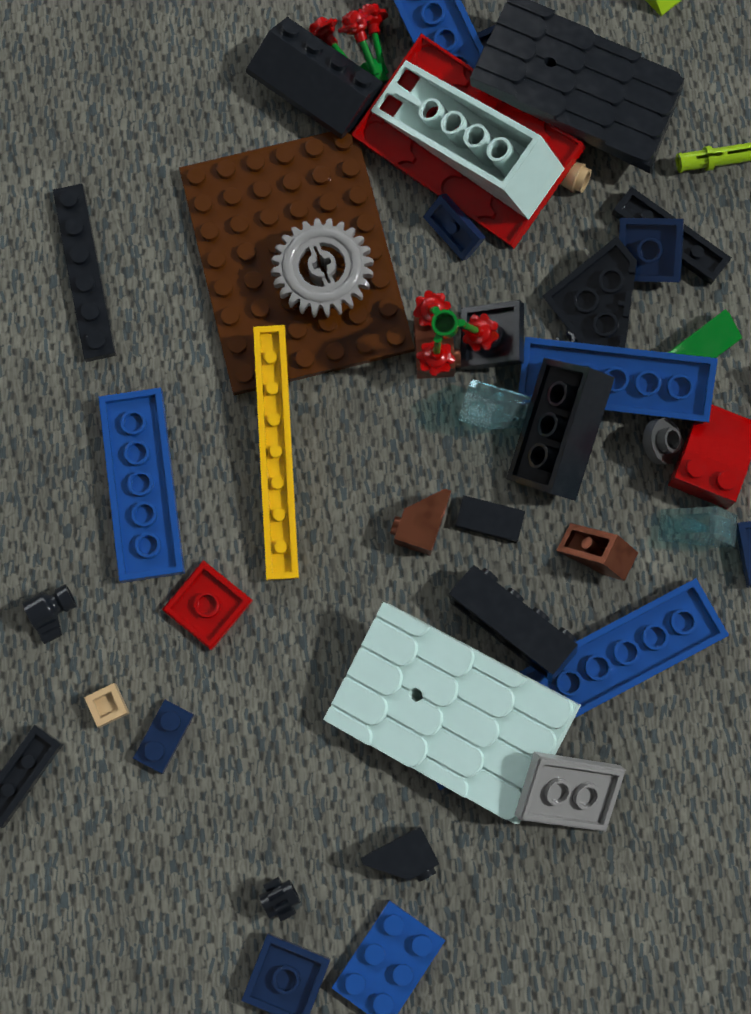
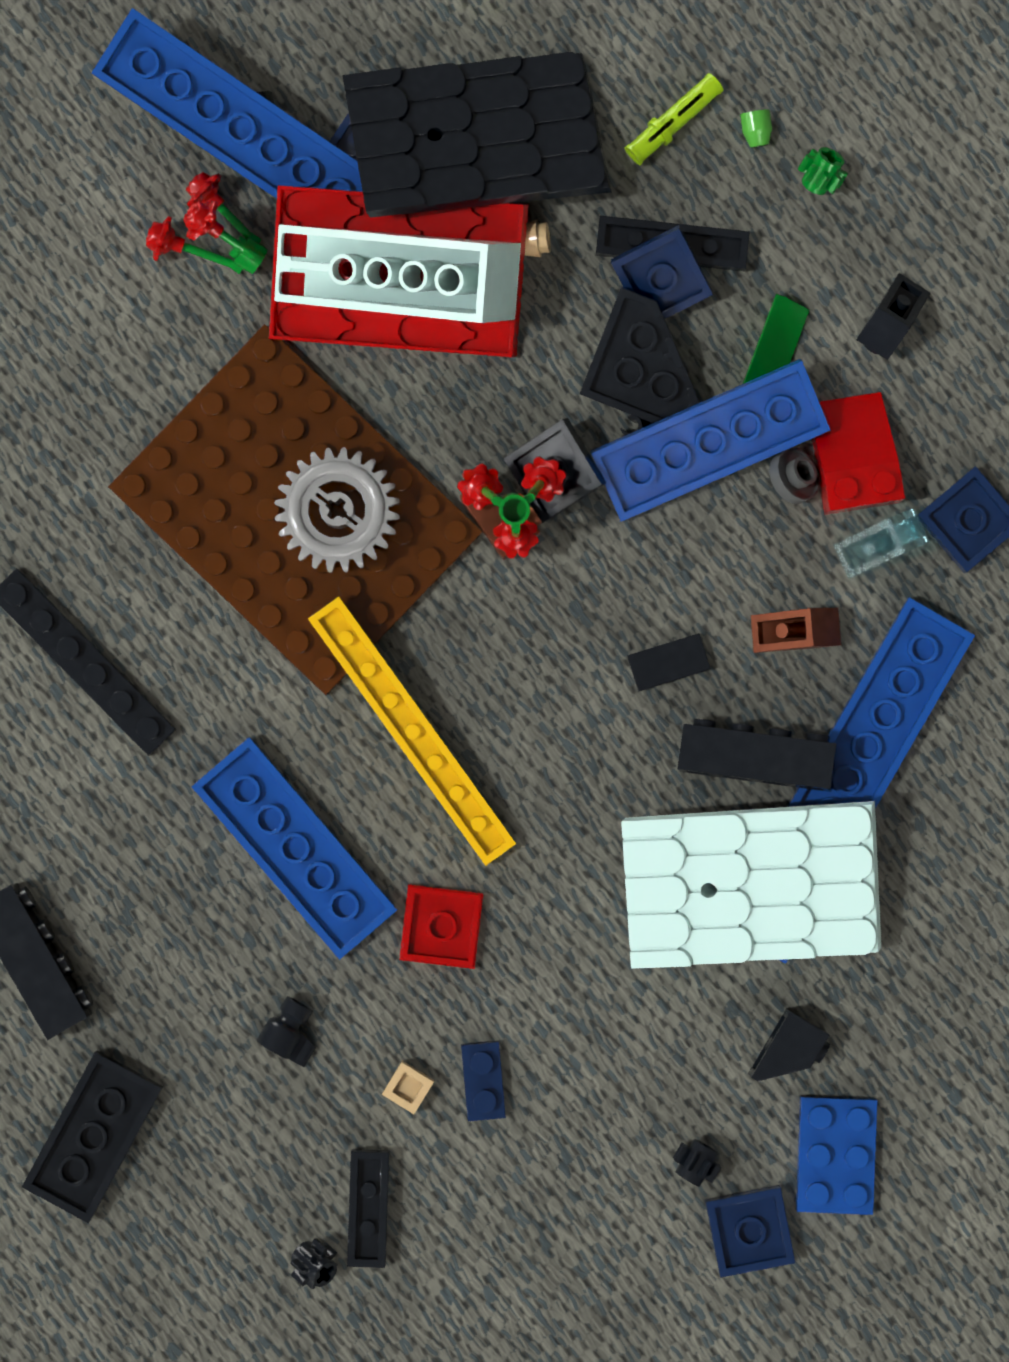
camera: 40 degrees left, 10 degrees up
(314, 77) = (190, 300): black slope -> none
(421, 523) = (604, 711): copper slope -> none
(454, 227) = (441, 374): dark blue plate -> none
(493, 407) = (602, 546): clear light blue slope -> none
(560, 428) = (685, 529): black slope -> none
(569, 792) = (912, 888): light grey tile -> none

